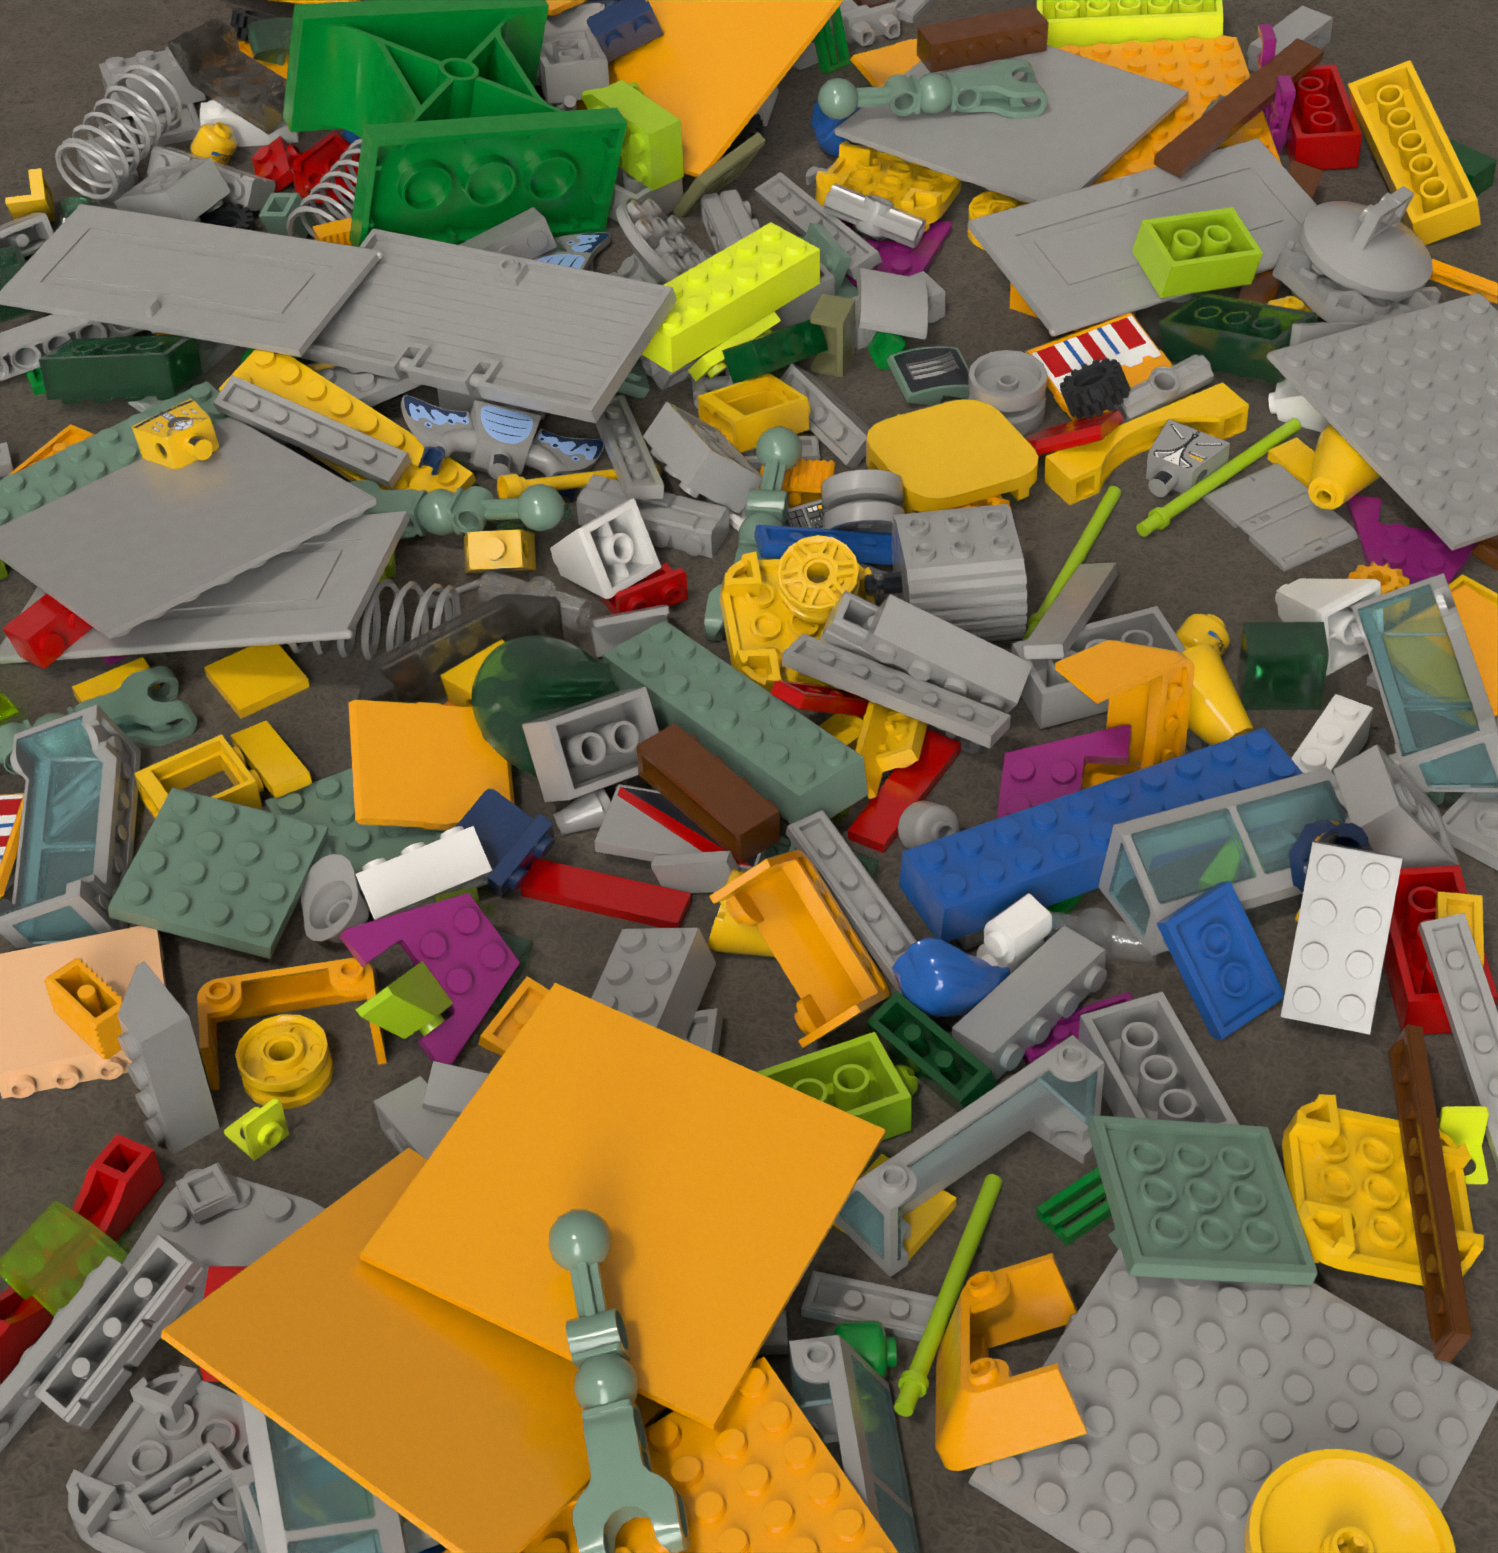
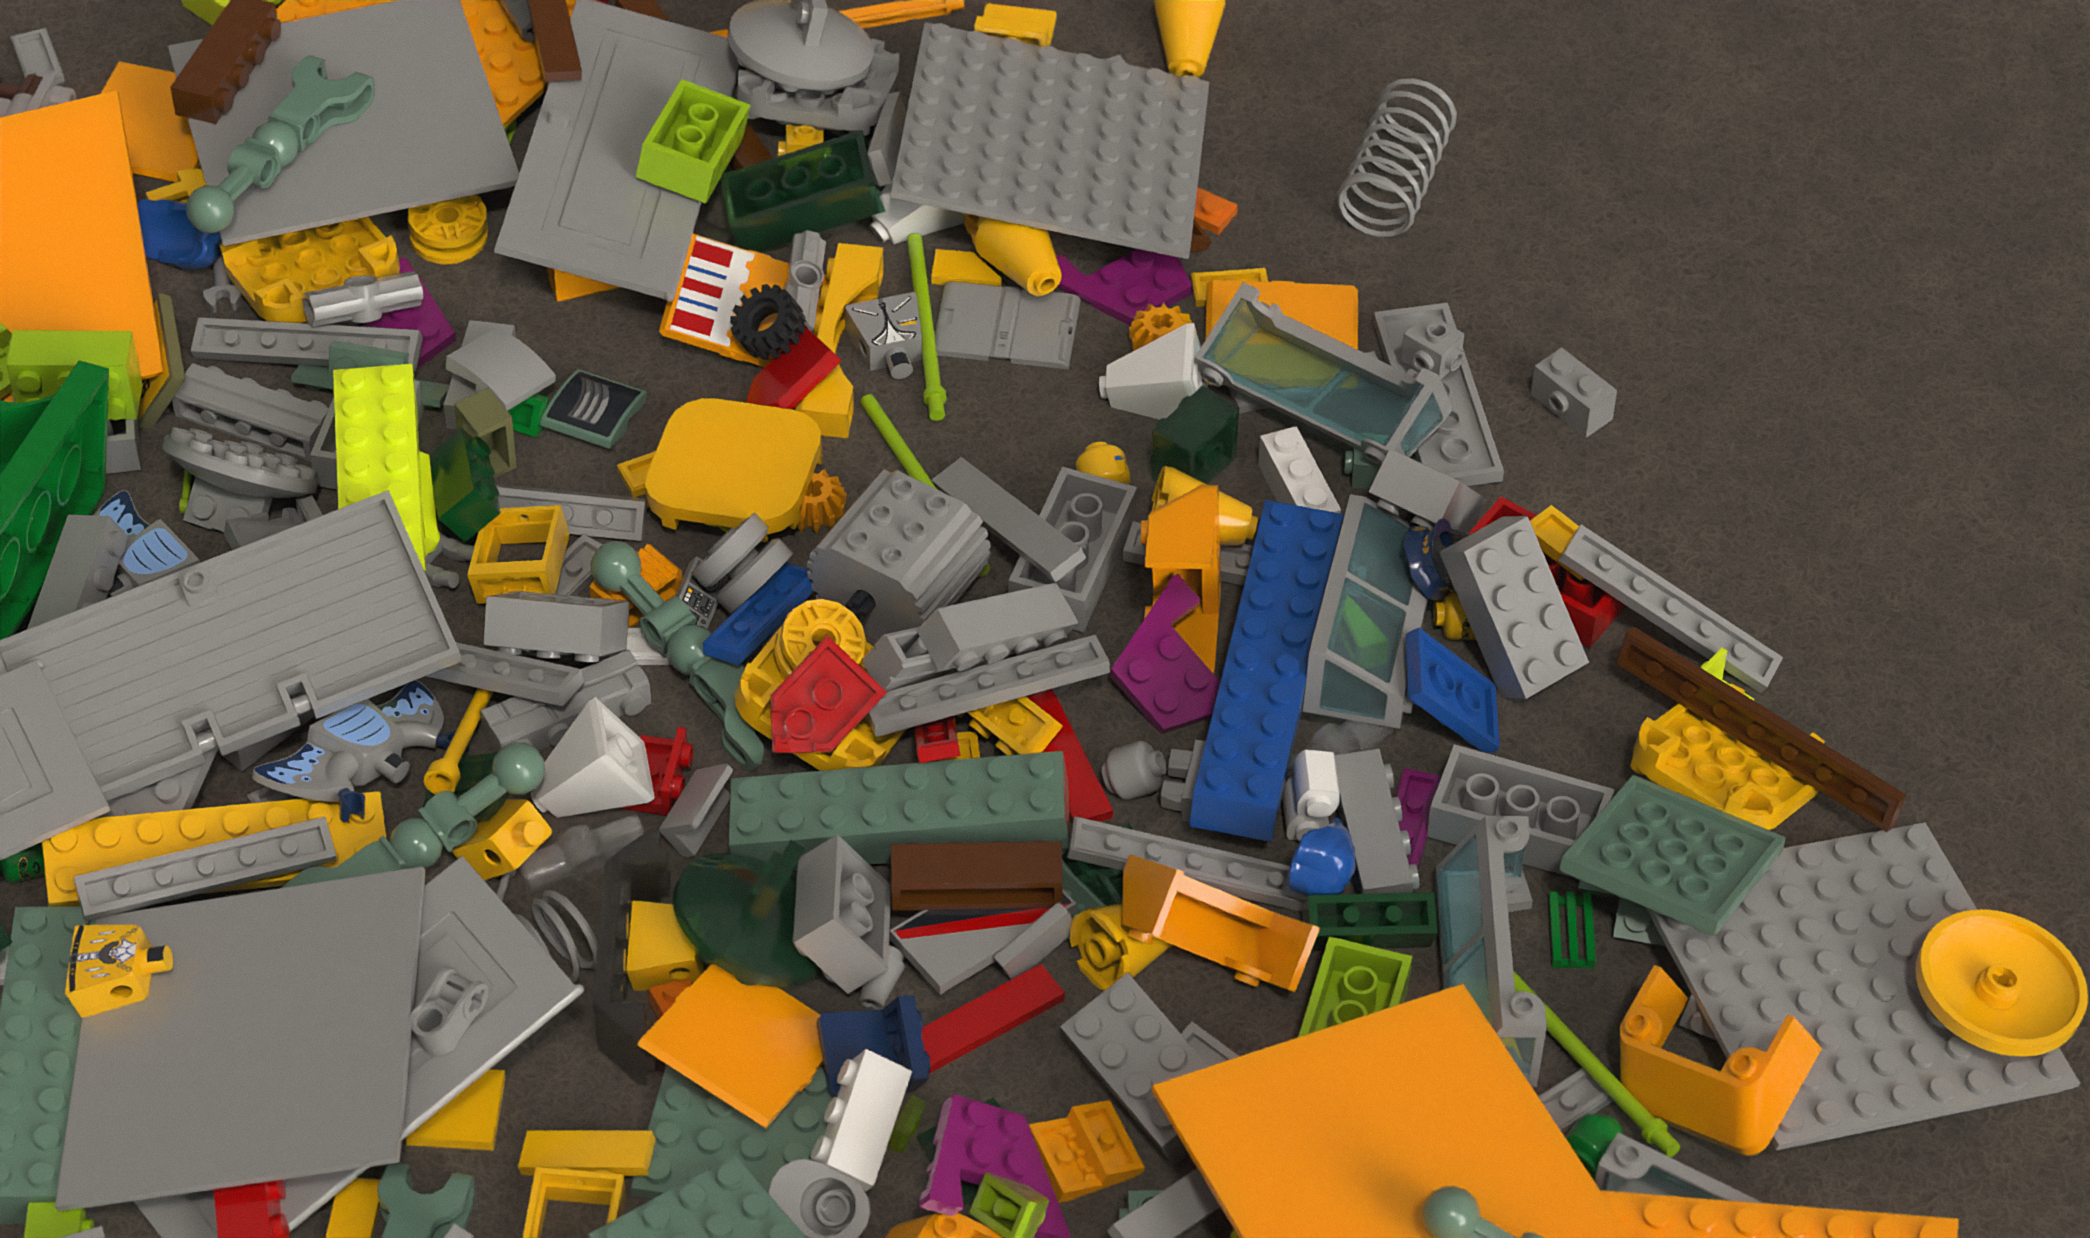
camera: 55 degrees left, 5 degrees up
(265, 589) = (452, 1005): none -> light grey piece
(767, 609) = (821, 701): none -> red tile
(1013, 385) = (686, 369): light grey wheel -> none

